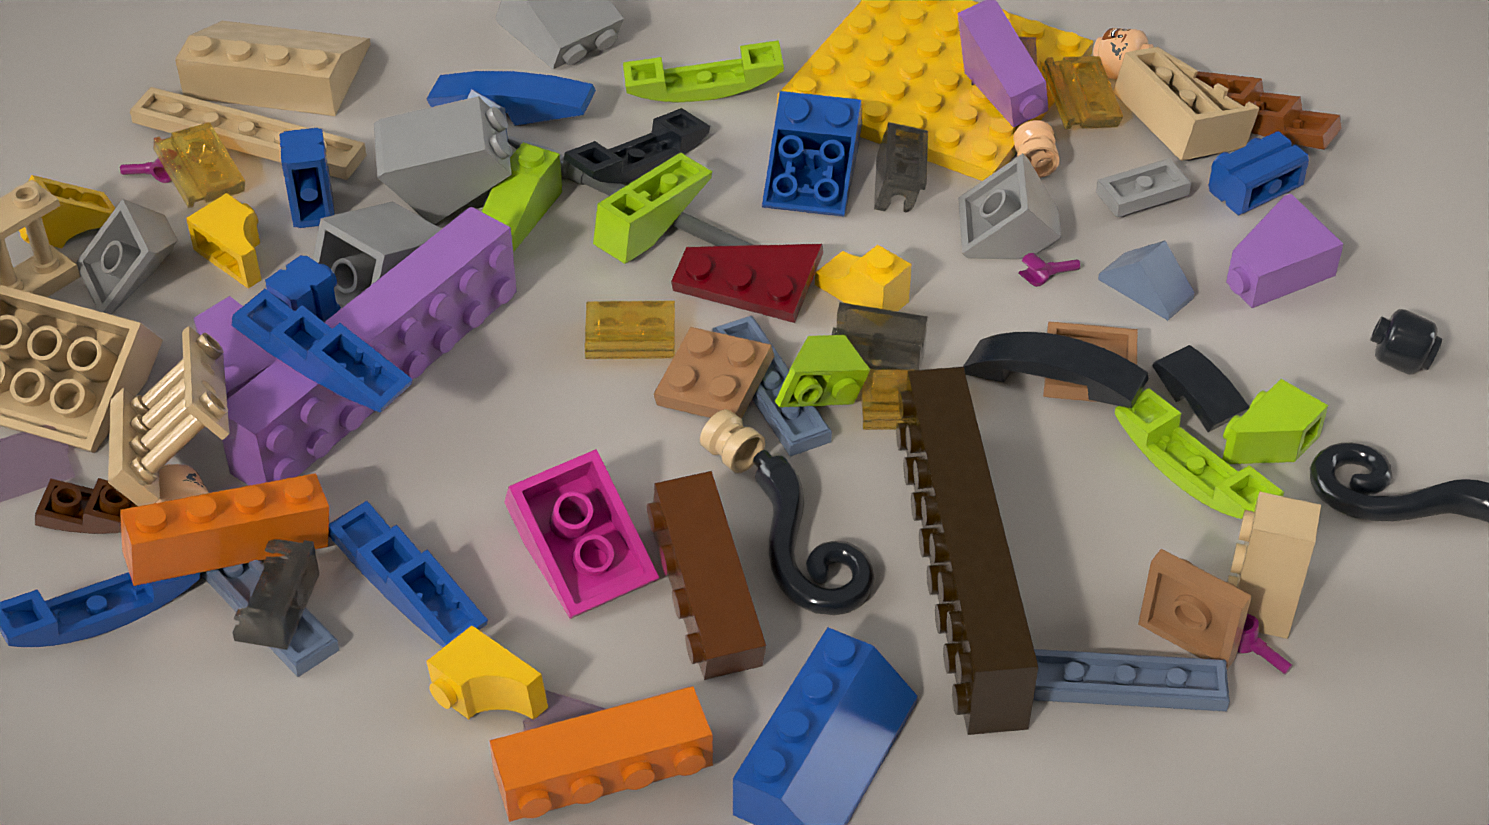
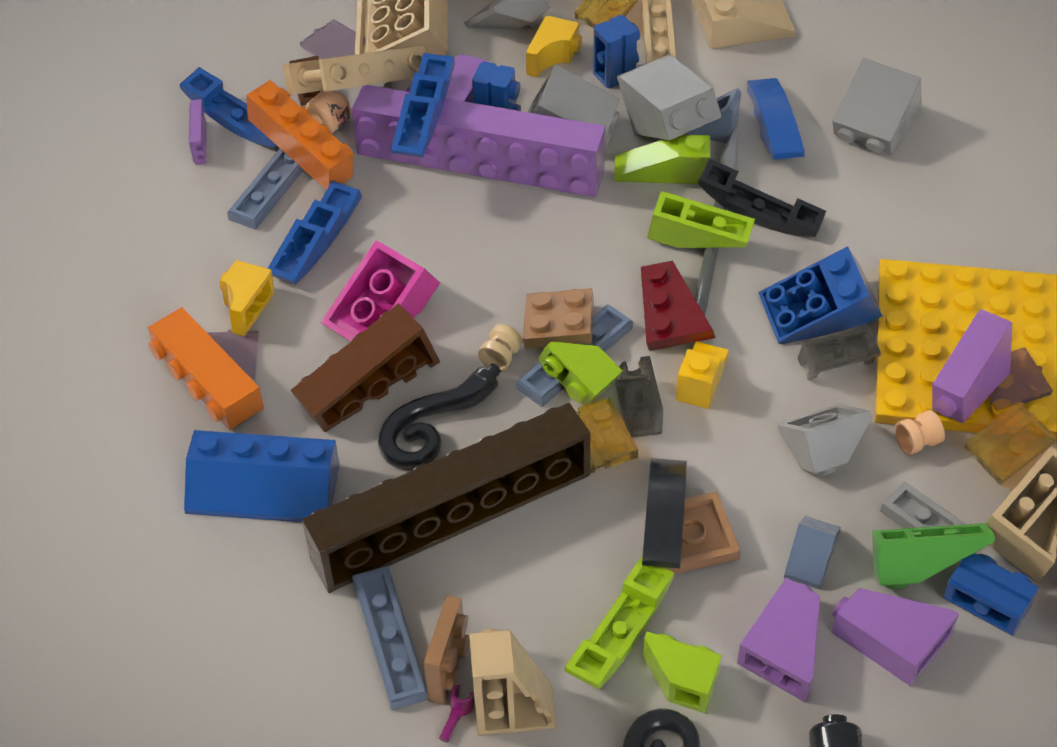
camera: 70 degrees right, 5 degrees up
(104, 657) = (197, 132): none -> medium lavender tile
(279, 595) = (264, 183): clear smoke hinge -> none
(630, 330) = (581, 261): clear yellow plate -> none
(704, 81) = (867, 211): lime slope -> none
(1040, 271) = (781, 476): magenta hand -> none
(1202, 192) = (920, 552): none -> bright green slope
(1202, 384) = (706, 611): black slope -> none
(1262, 333) = (784, 640): none -> medium lavender slope

